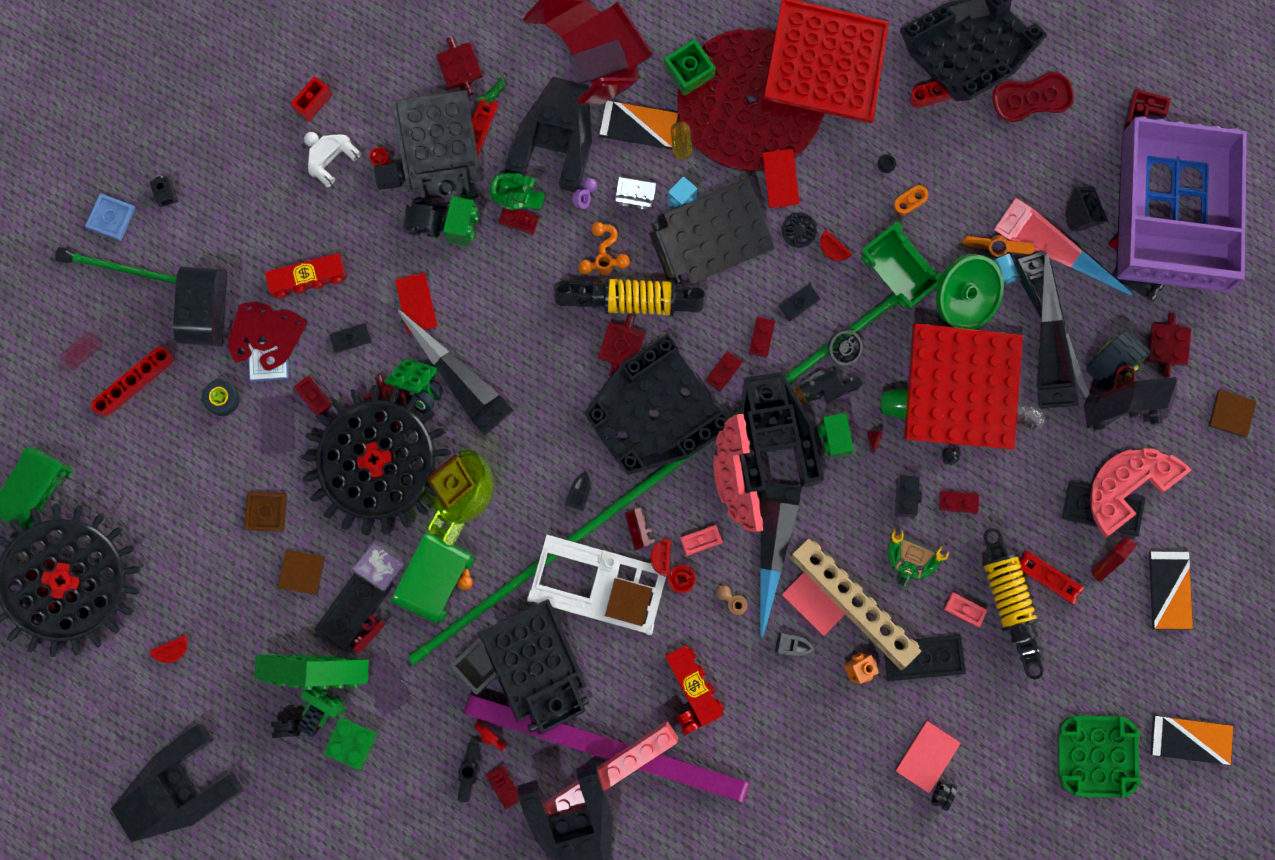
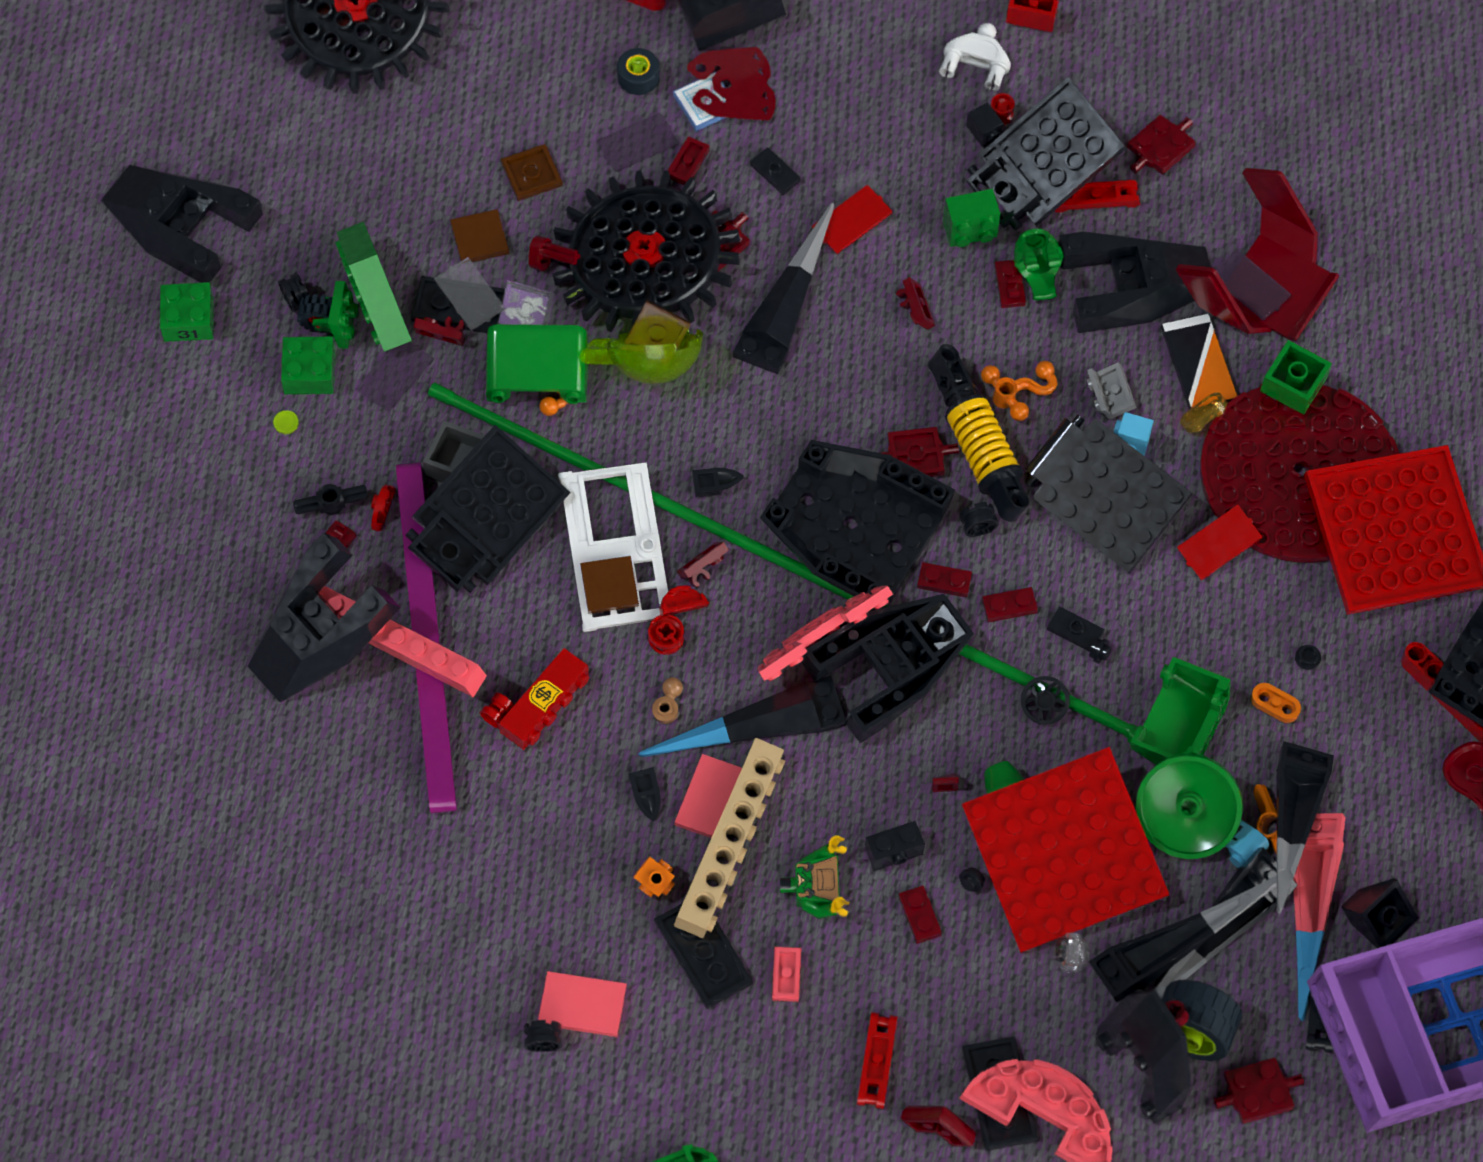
camera: 65 degrees right, 15 degrees down
(171, 651) = (330, 147): red plate -> none
(262, 816) = (186, 312): none -> green brick
(305, 275) = (823, 94): red brick -> none
(339, 532) = (543, 249): none -> dark red piece
(349, 601) = (469, 293): none -> clear piece
(387, 778) = (285, 422): none -> lime piece
(416, 378) = (763, 249): green plate -> none
(423, 219) = (950, 177): black brick -> none
(499, 288) = (916, 300): none -> dark red plate
(500, 88) = (1149, 193): green piece -> none
(581, 197) = (1093, 339): medium lavender plate -> none
(693, 327) = (979, 519): none -> black wheel
(701, 540) = (723, 637): coral plate -> none
(799, 230) = (1167, 592): black wheel -> none
(824, 294) = (1100, 650): none -> black plate
(825, 385) = (986, 699): black plate -> none
(833, 248) = (1164, 638): red plate -> none
(836, 436) = (926, 728): green slope -> none
(981, 214) = (1300, 788): none -> black plate
(1013, 601) = (822, 1020): piece -> none

